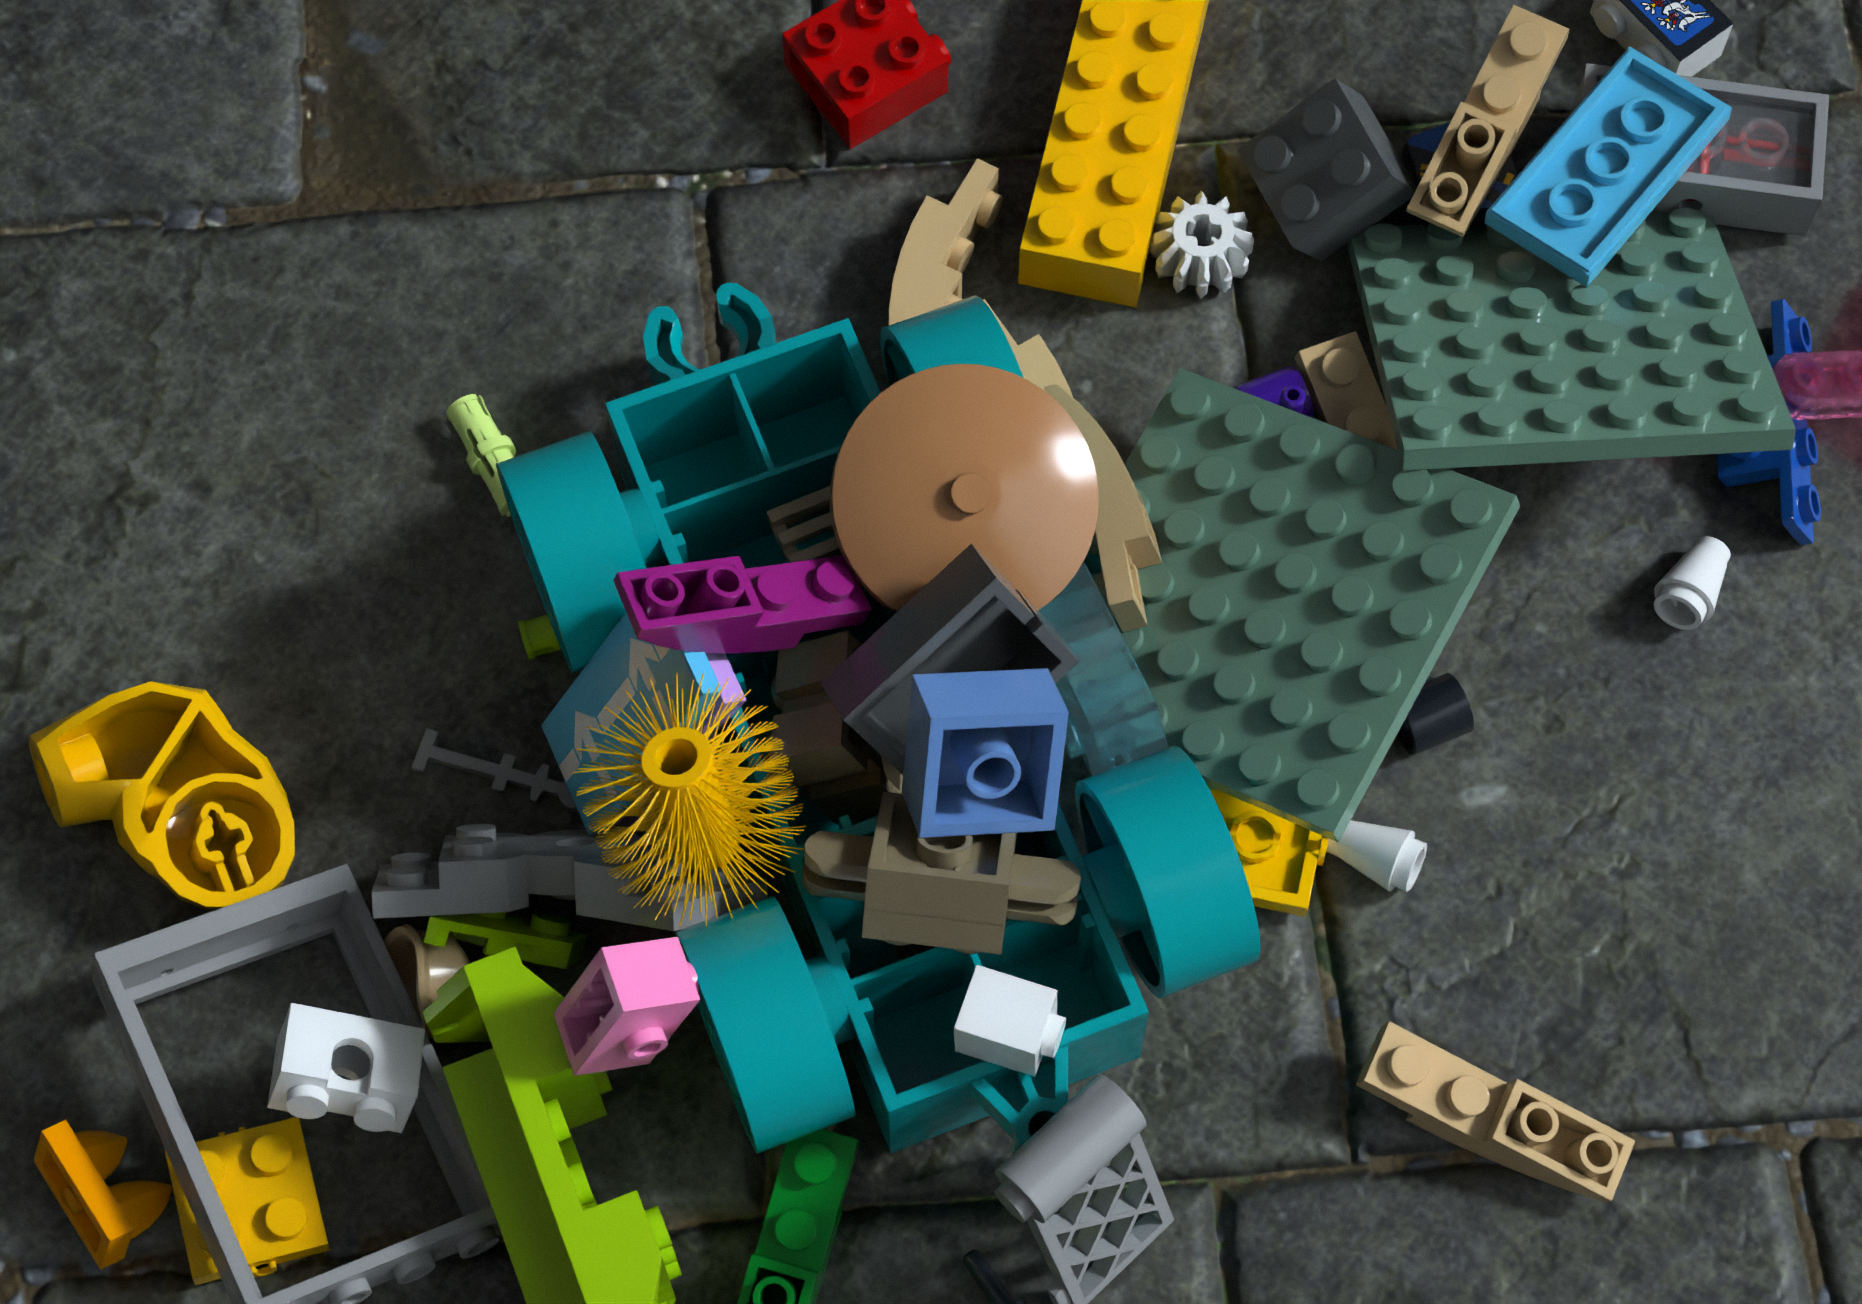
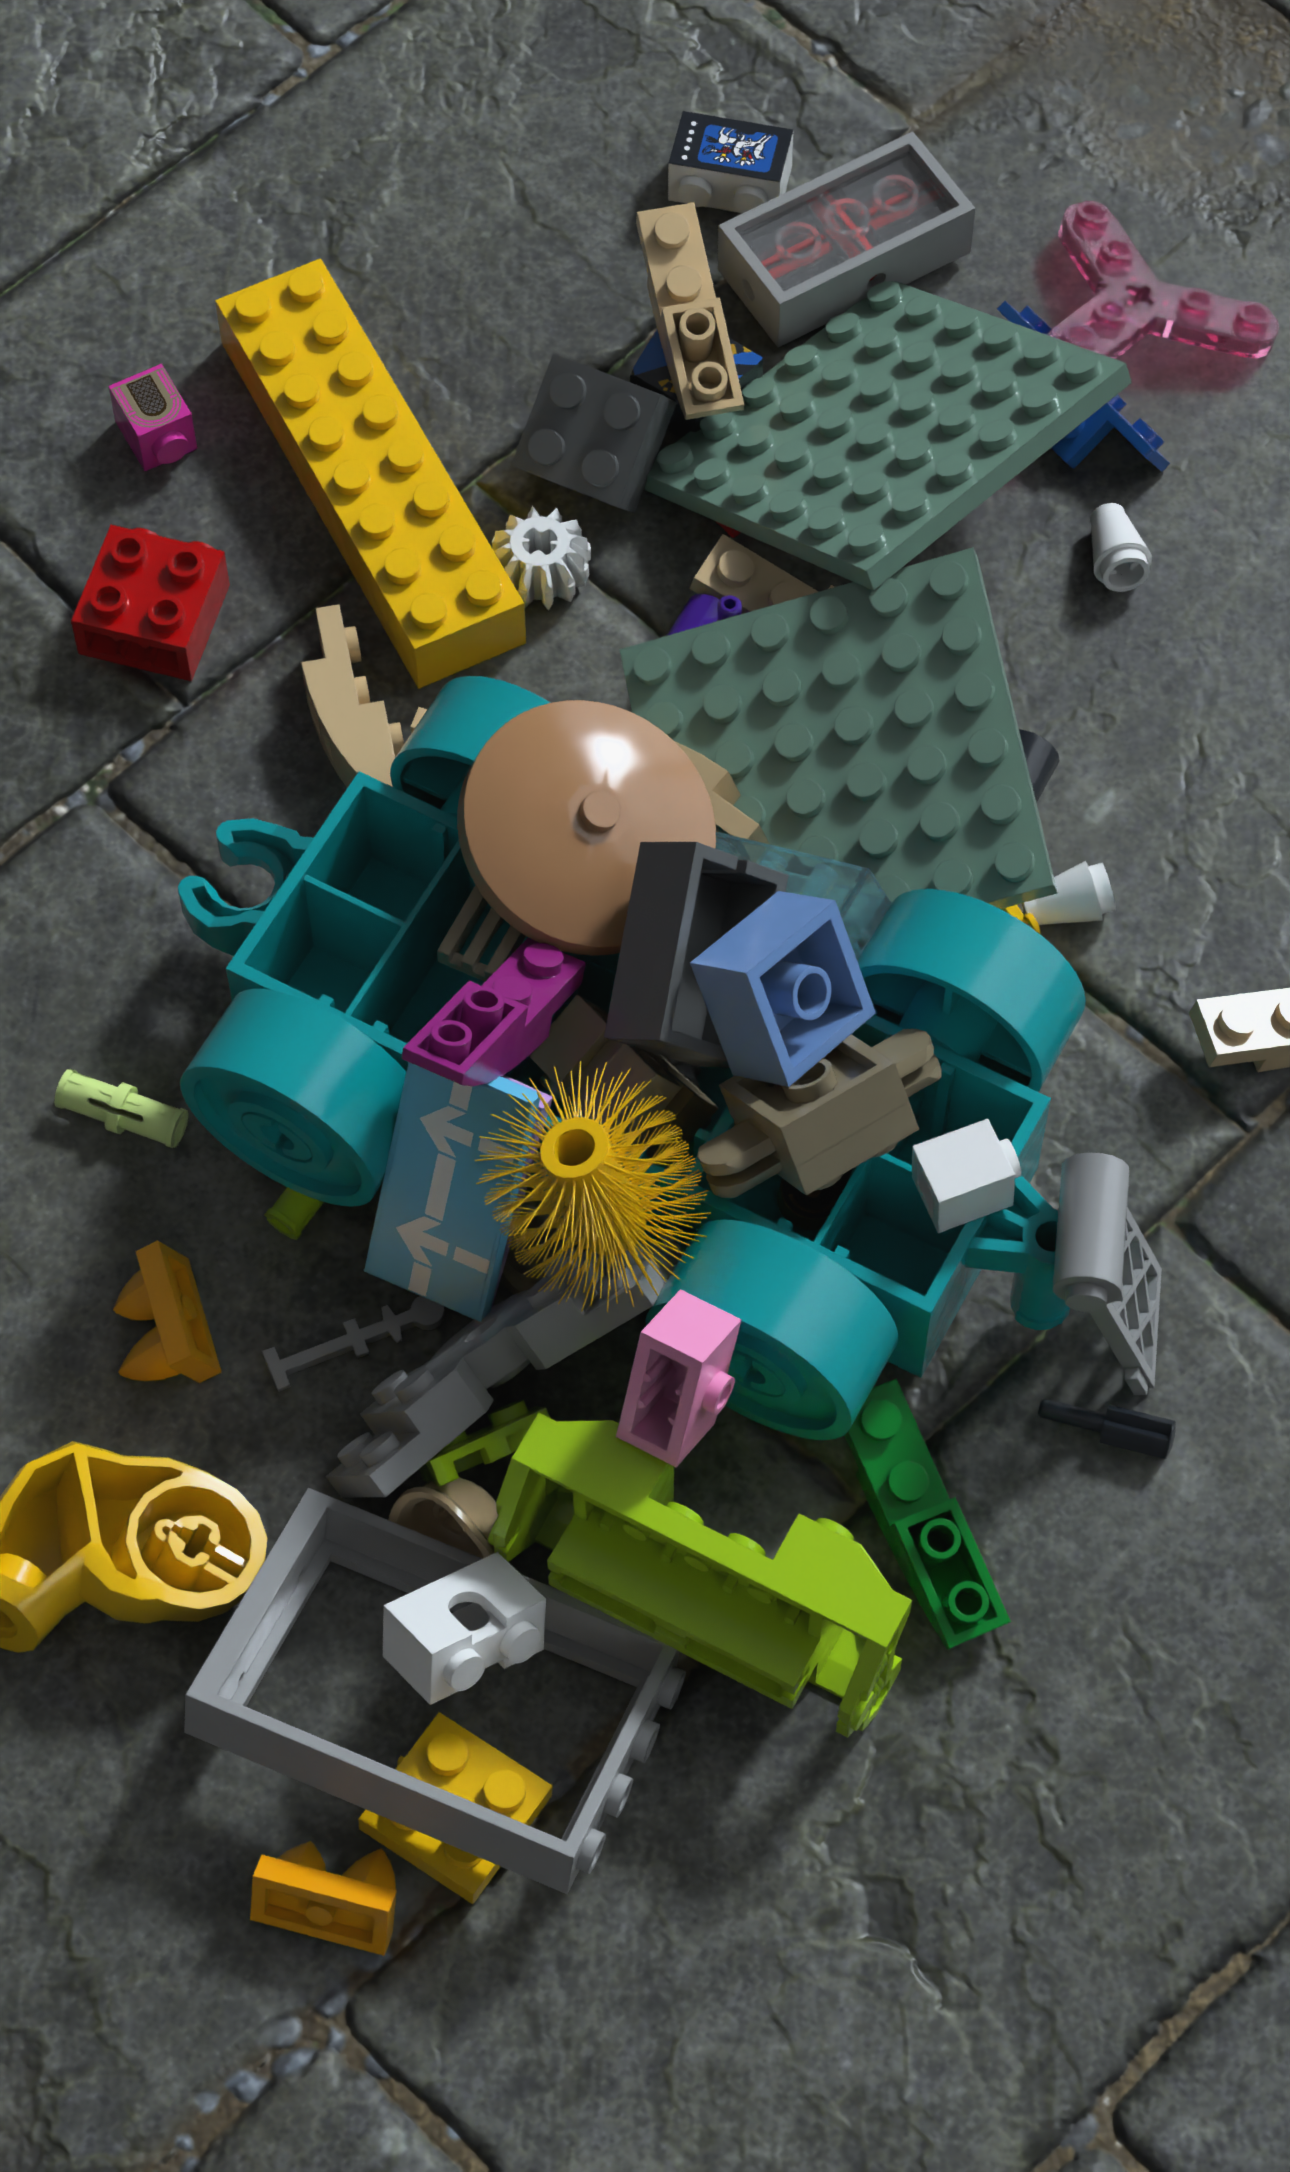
camera: 40 degrees left, 5 degrees down
(389, 640) = (181, 1340): none -> light orange tile
(1608, 166) = (805, 285): medium azure tile -> none

